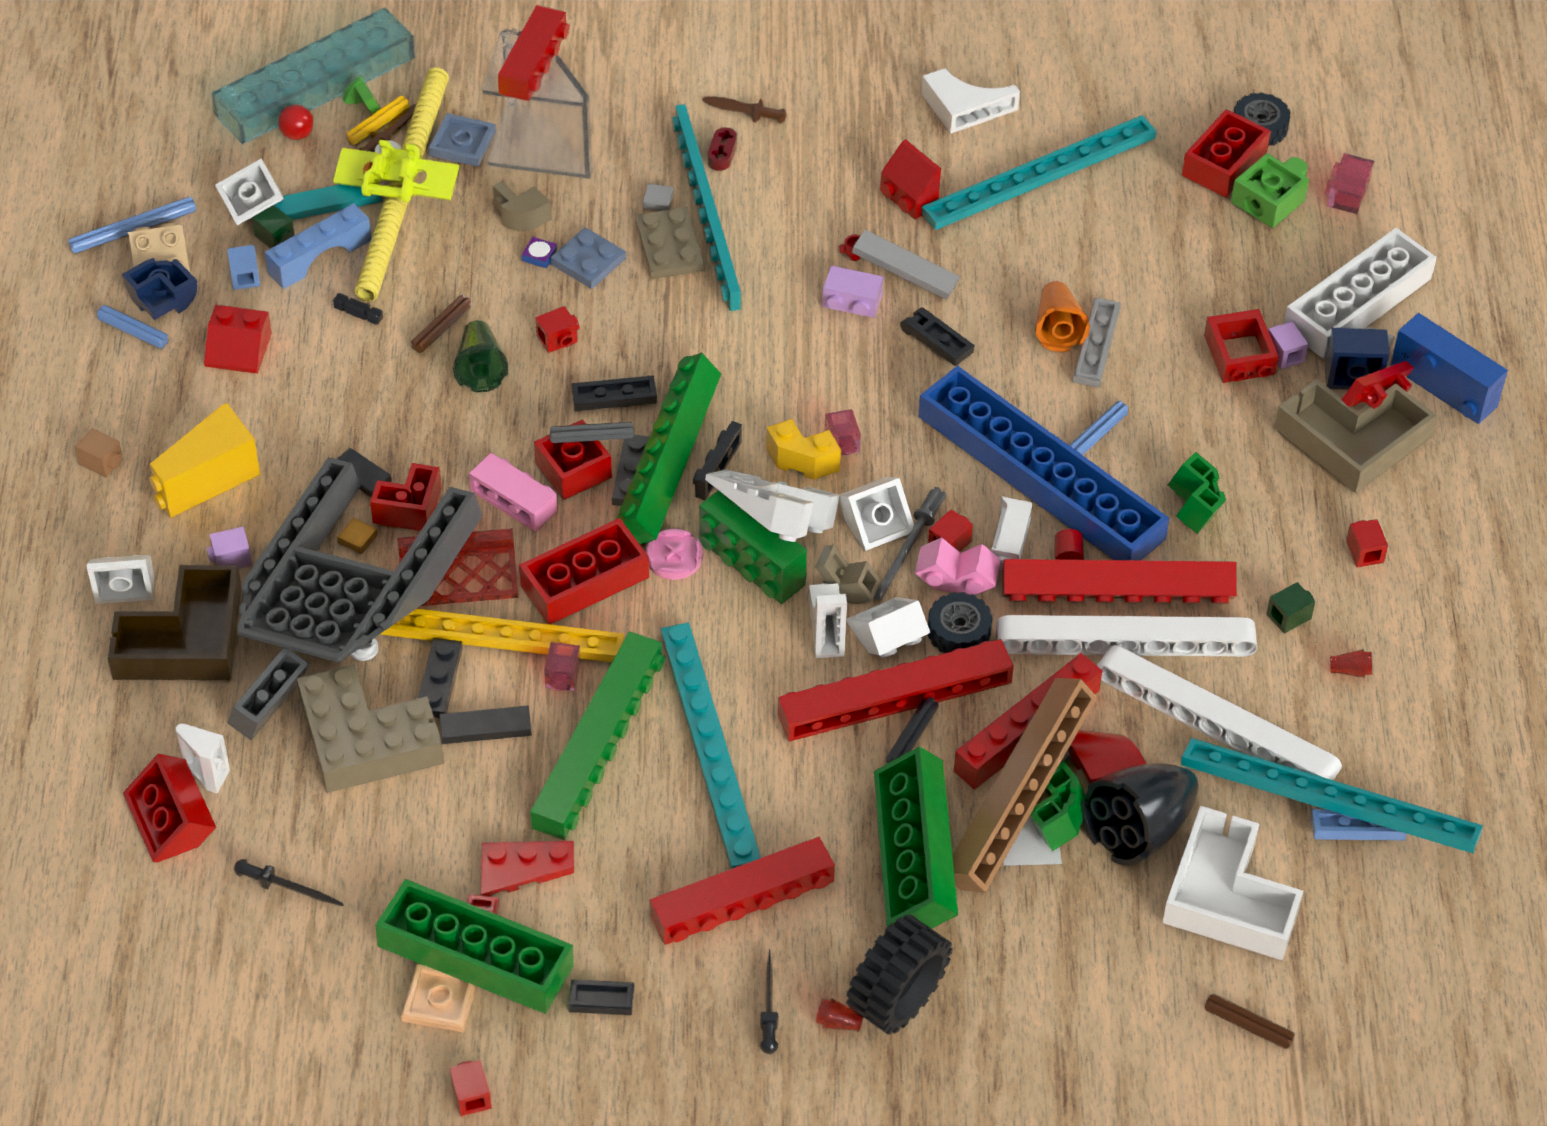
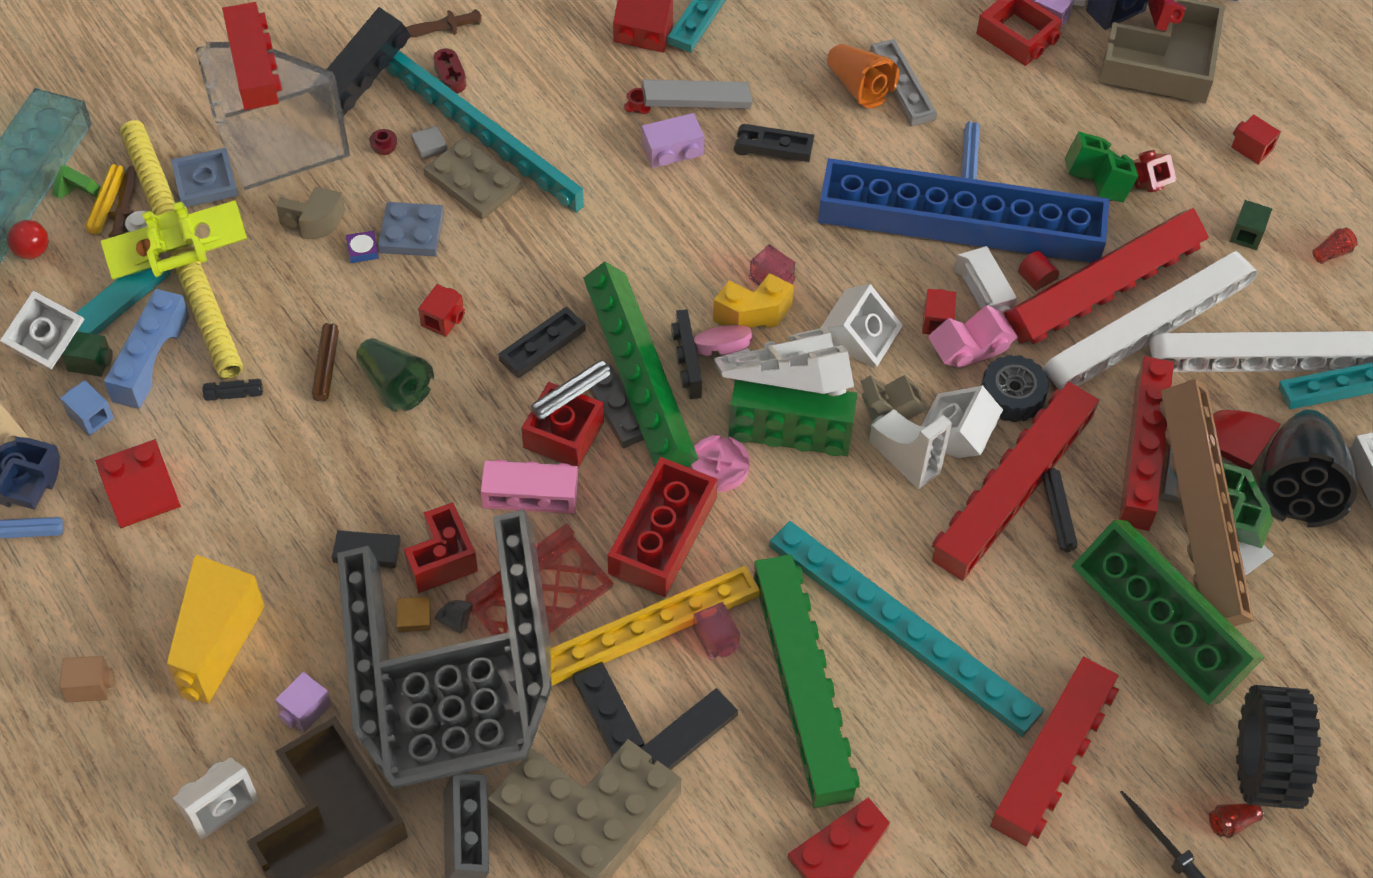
camera: 35 degrees left, 5 degrees up
(383, 551) = (455, 615): none -> dark grey tile
(622, 179) = (383, 141): none -> dark red plate
(647, 105) = (367, 56): none -> black brick
(752, 462) = (723, 338): none -> bright pink tile
(924, 517) = (903, 307): dark grey piece -> none
(1240, 530) = (1154, 171): none -> red brick

